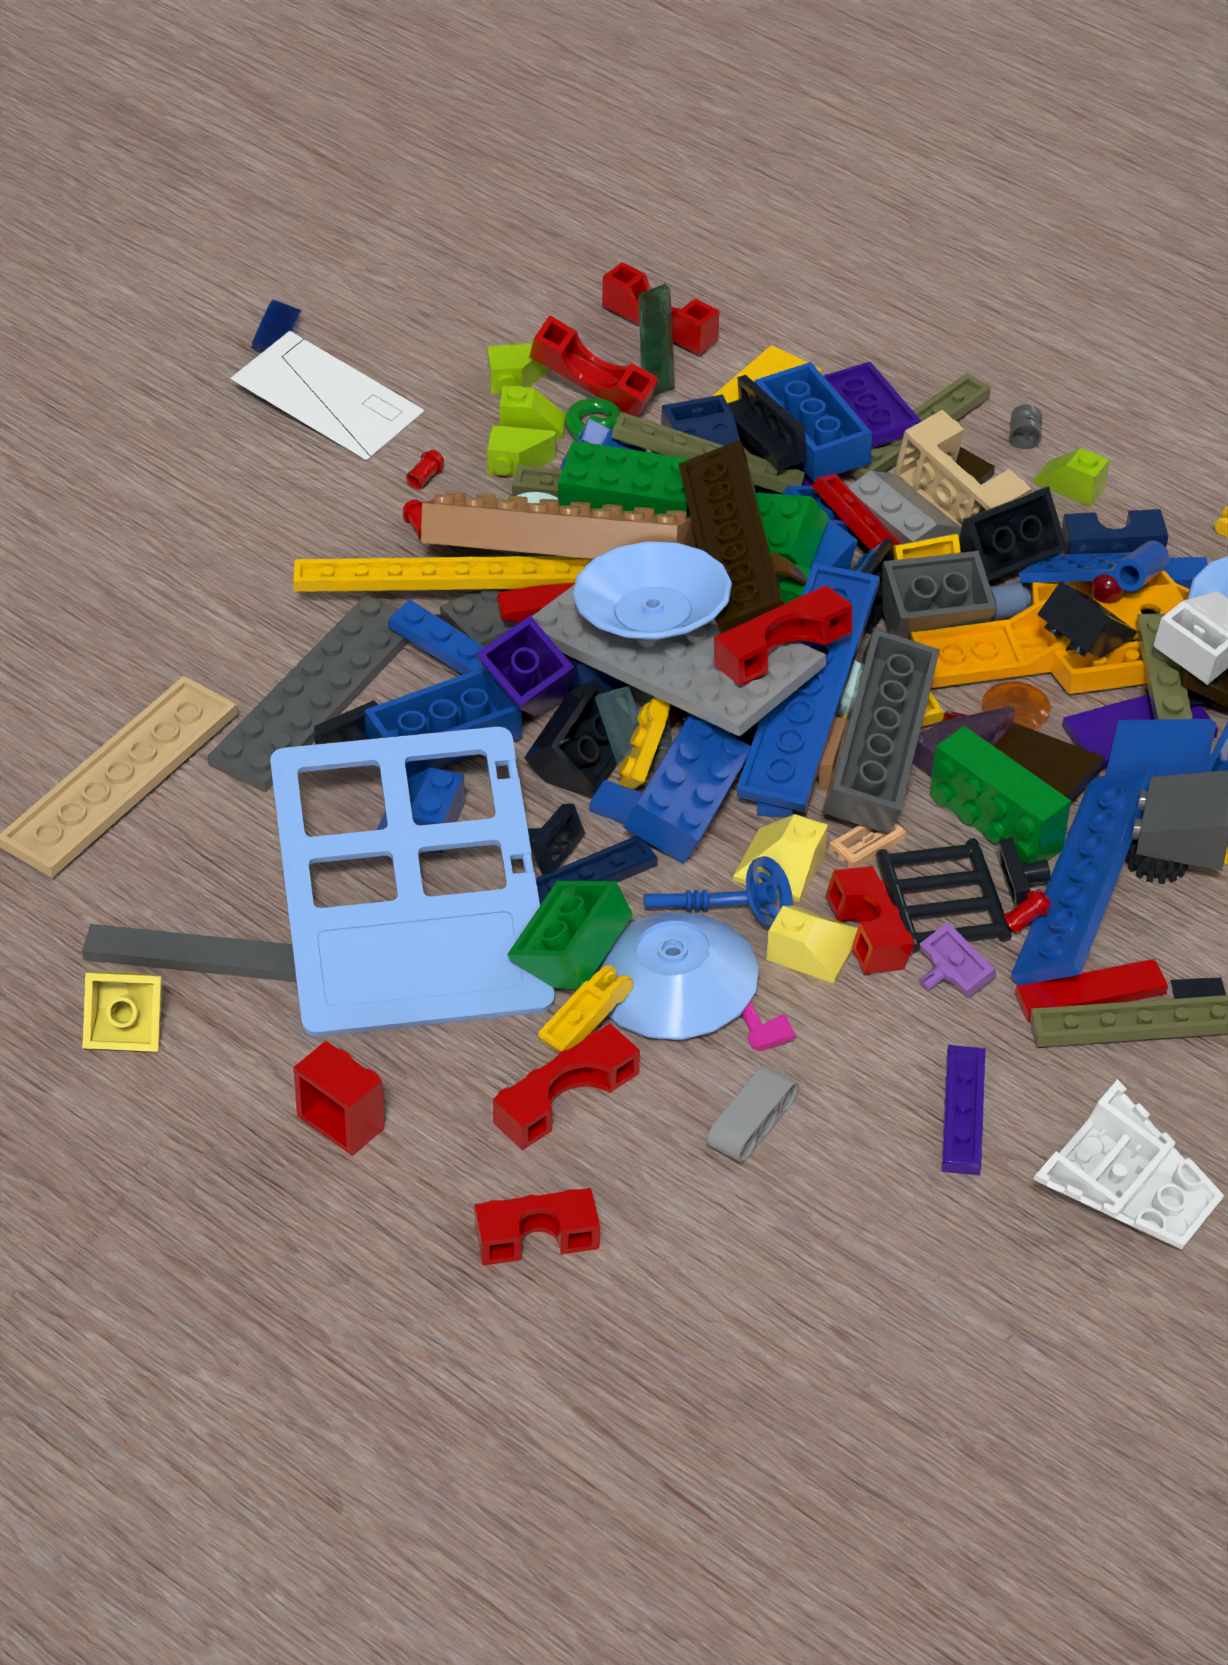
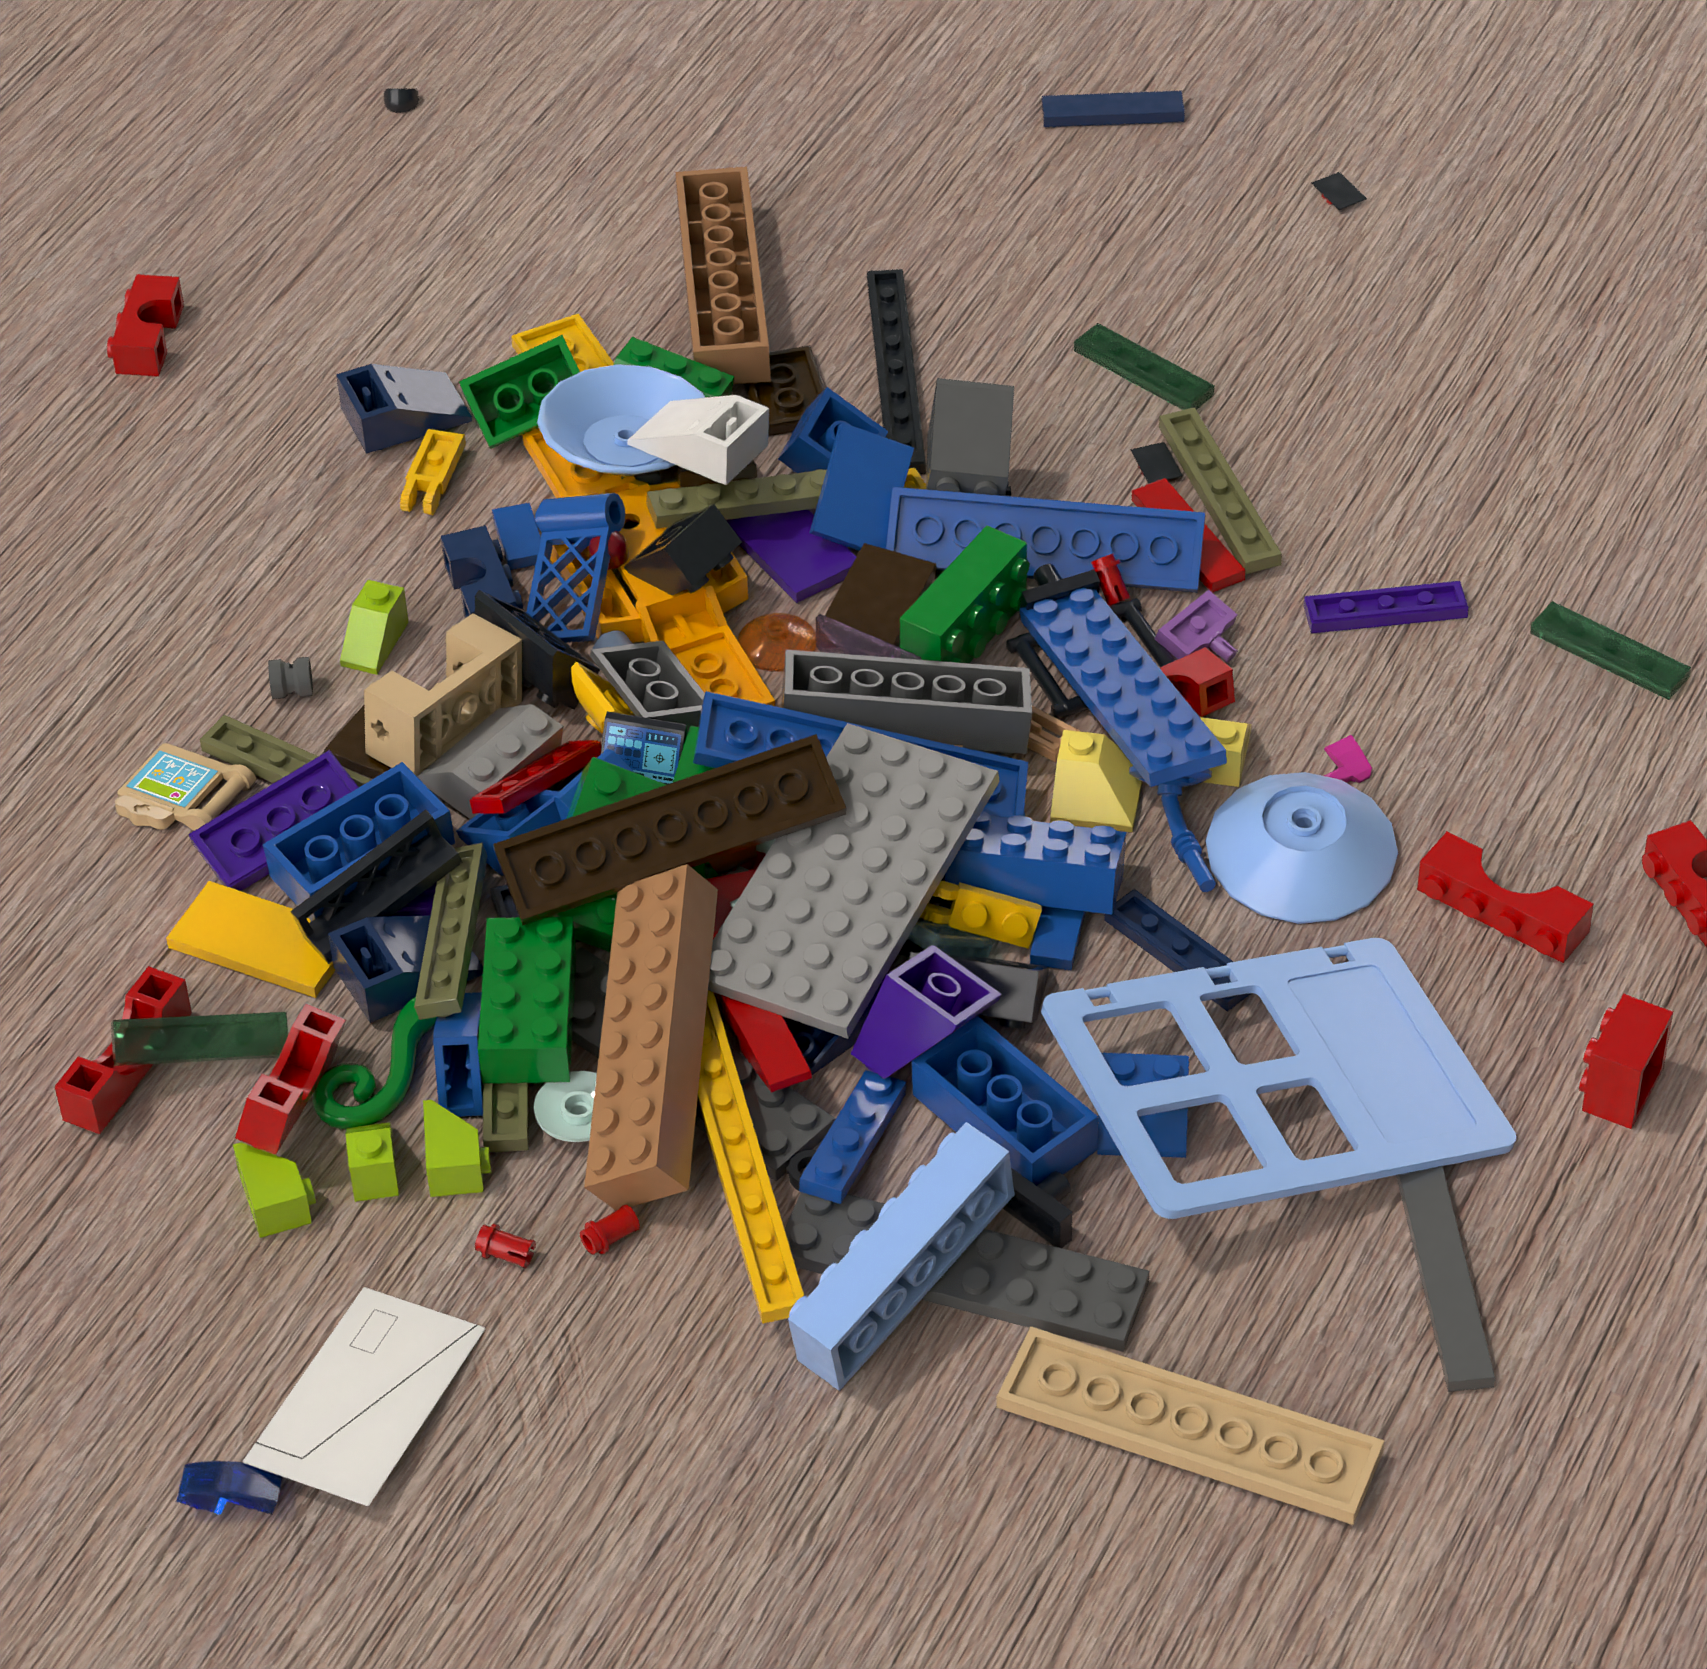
camera: 100 degrees left, 0 degrees up
(122, 1010) = (1570, 1308): light yellow slope -> none
(304, 624) = (901, 1255): none -> light blue brick
(556, 837) = (1139, 965): black tile -> none
(572, 932) = (1303, 914): green slope -> none
(585, 1009) = (1401, 894): yellow hinge -> none
(652, 590) = (813, 836): light blue dish -> none
(752, 1114) = (1473, 748): light grey beam -> none
(814, 617) = (888, 768): red arch -> none
(864, 1261) = (1610, 650): none -> clear green tile
(869, 870) = (1123, 687): none -> blue plate
(927, 364) = (174, 784): none -> tan piece
(1132, 1172) = (1423, 482): white wedge -> none

